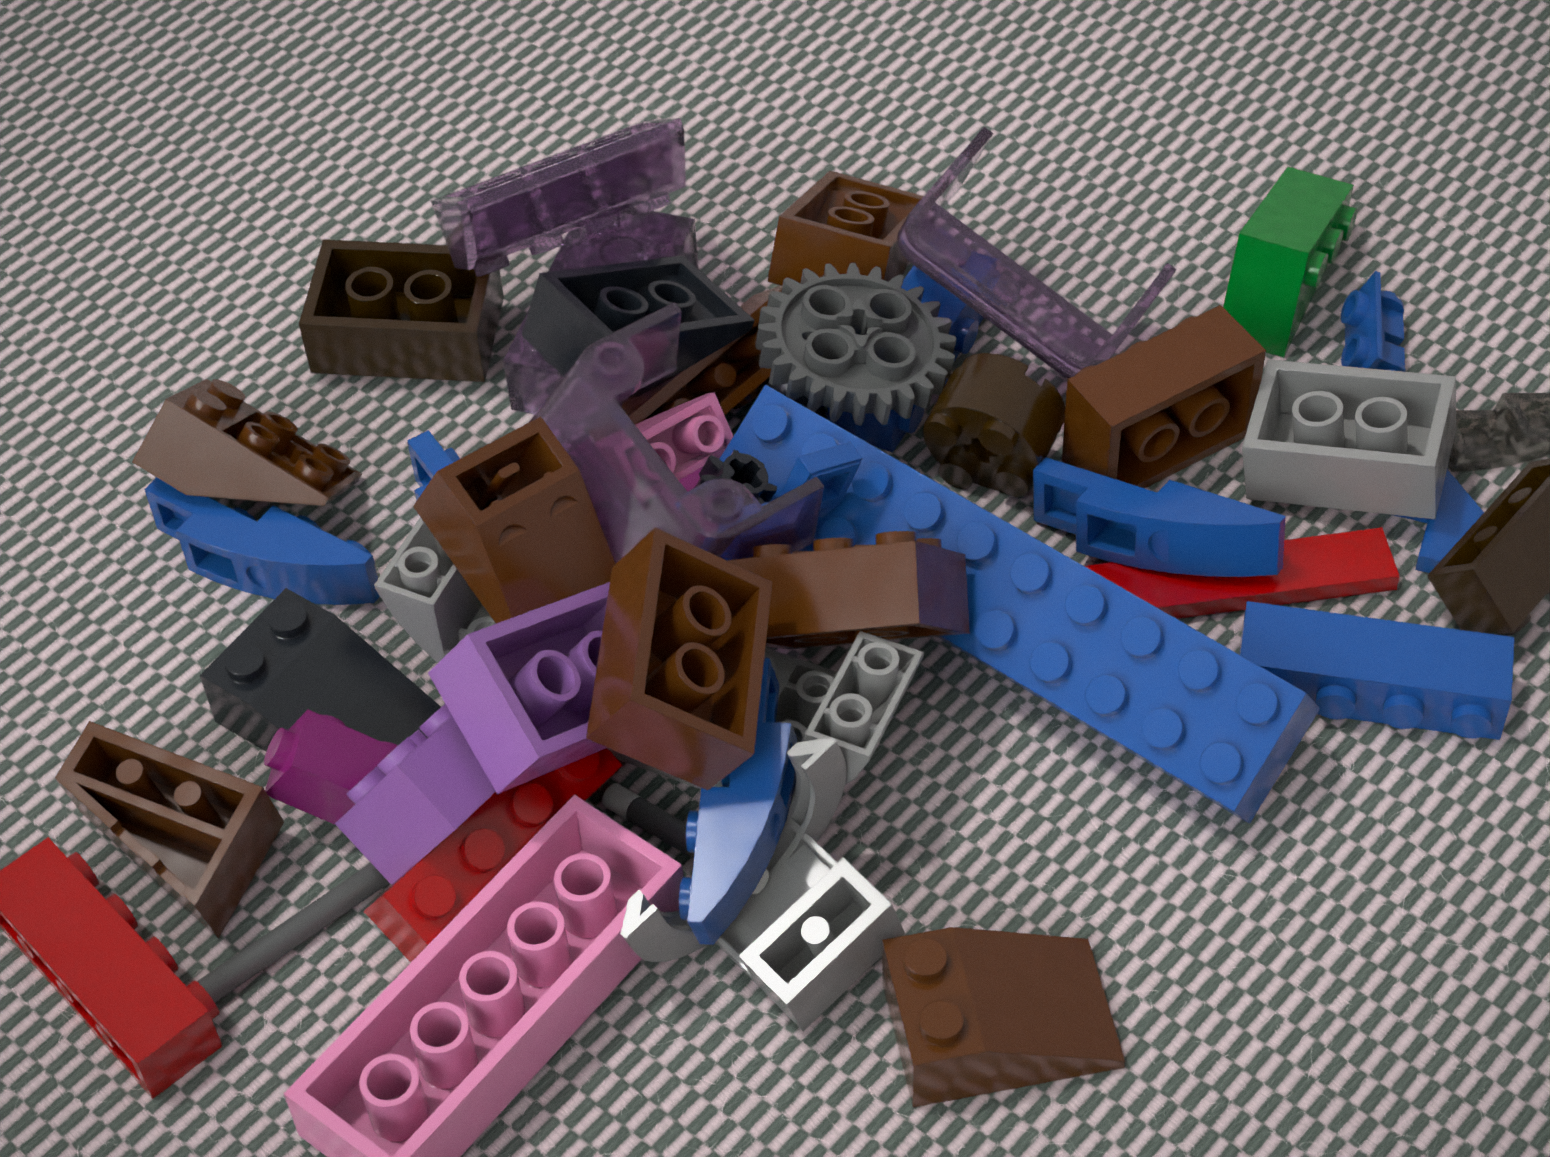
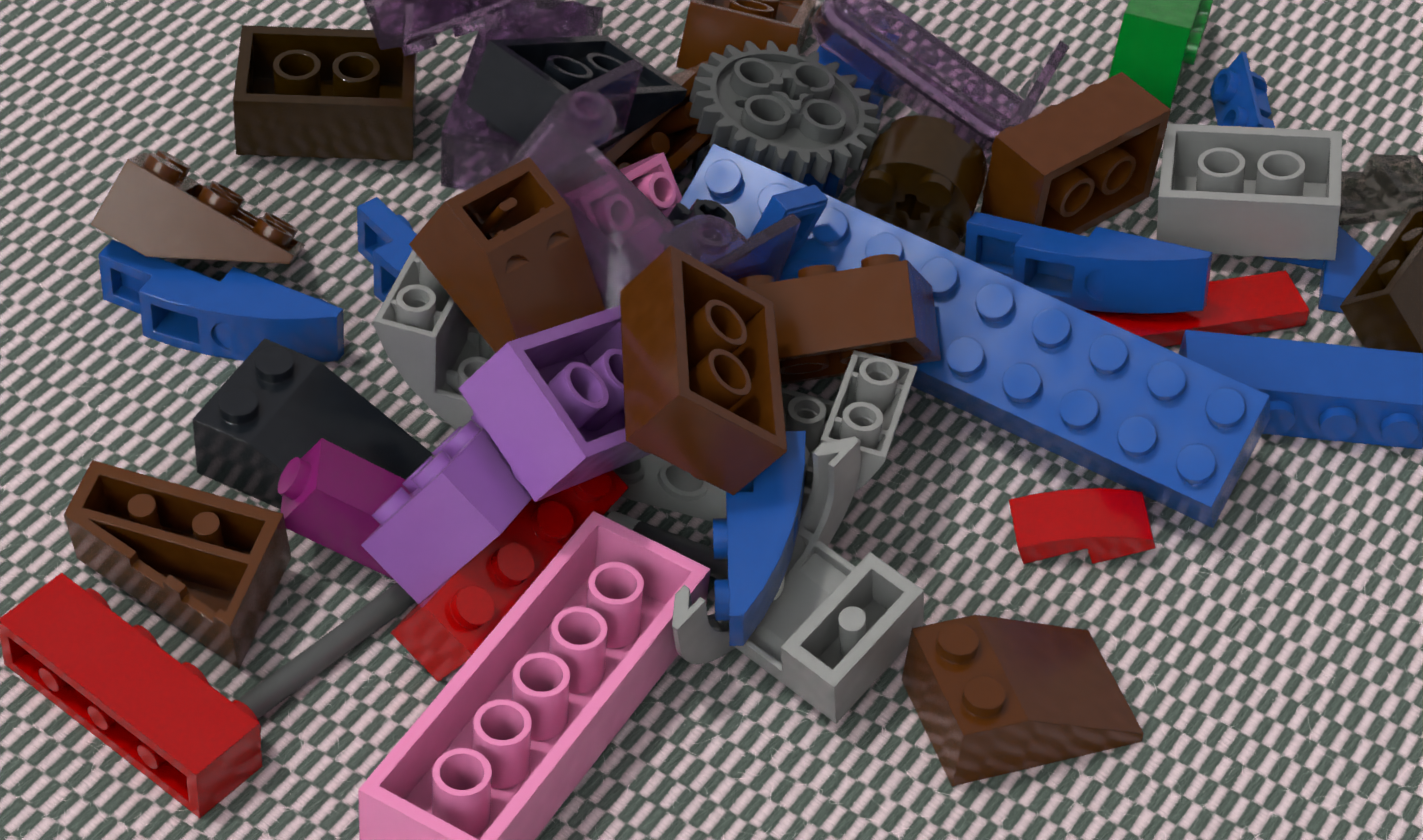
camera: 15 degrees left, 5 degrees down
(1116, 814) = (1094, 519): none -> red slope

